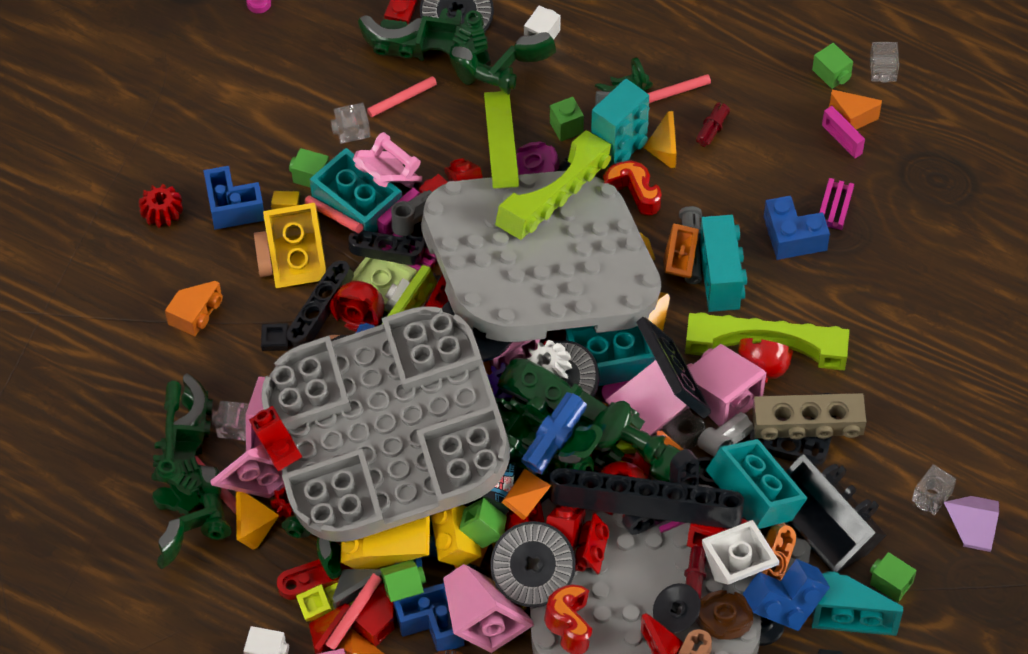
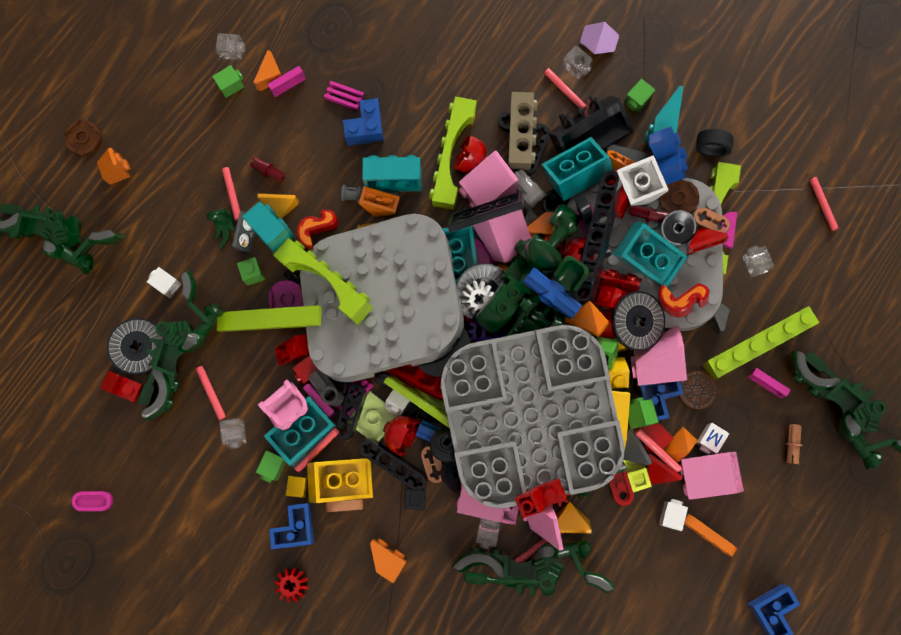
camera: 80 degrees left, 20 degrees up
(632, 575) = (650, 254): none -> teal slope
(894, 476) = (565, 89): none -> coral bar

